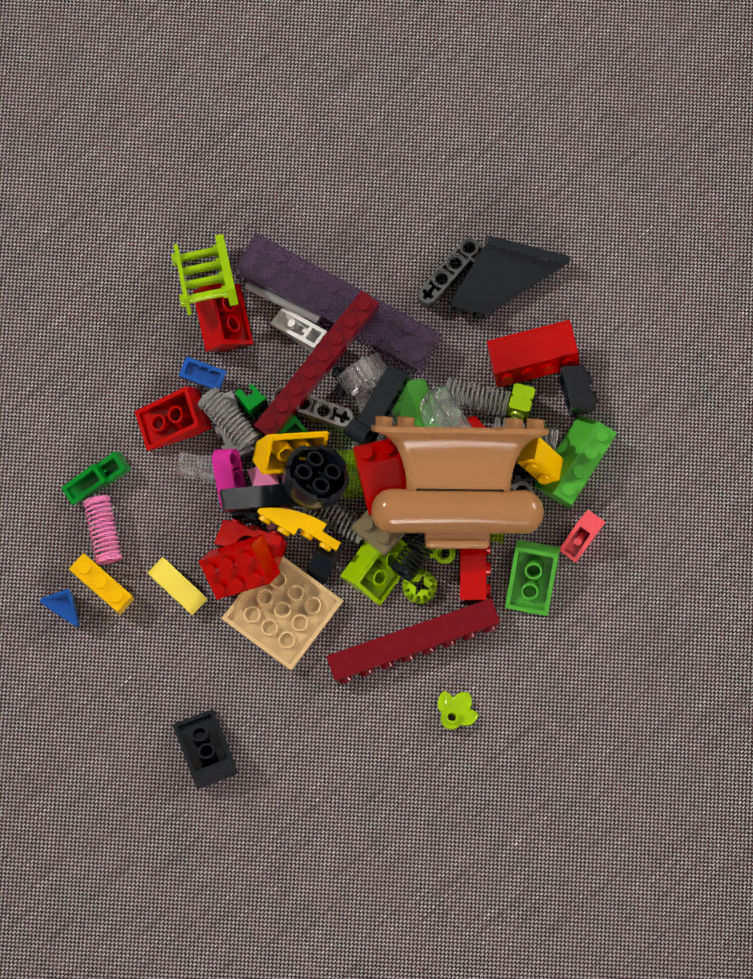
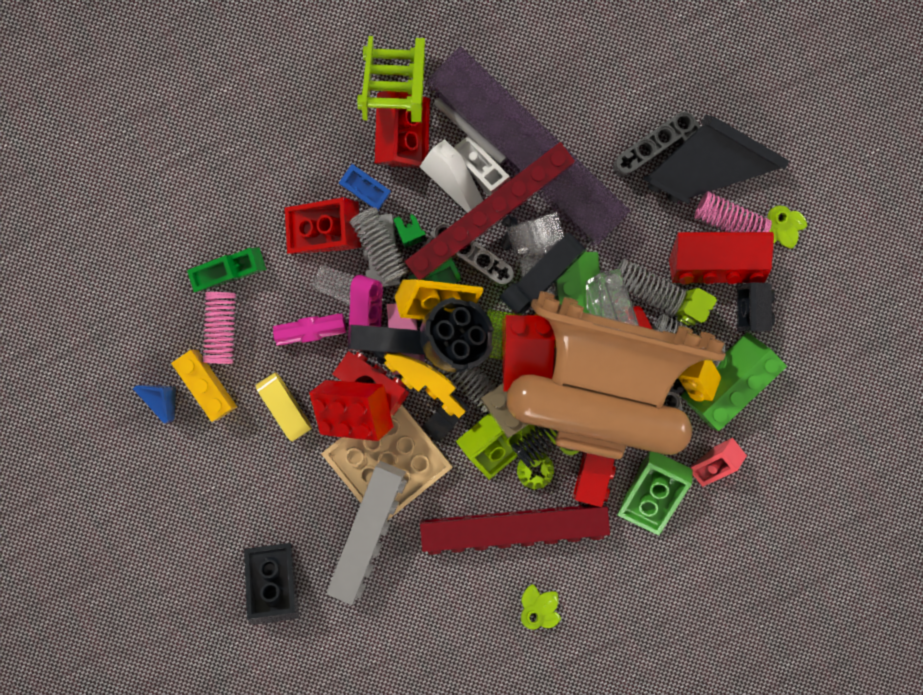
camera: 10 degrees right, 10 degrees up
(183, 511) = (309, 329): none -> dark pink piece
(275, 343) = (452, 175): none -> white slope
(280, 676) = (366, 532): none -> light grey brick
(509, 310) = (704, 210): none -> bright pink piece
(587, 316) = (787, 229): none -> lime plate

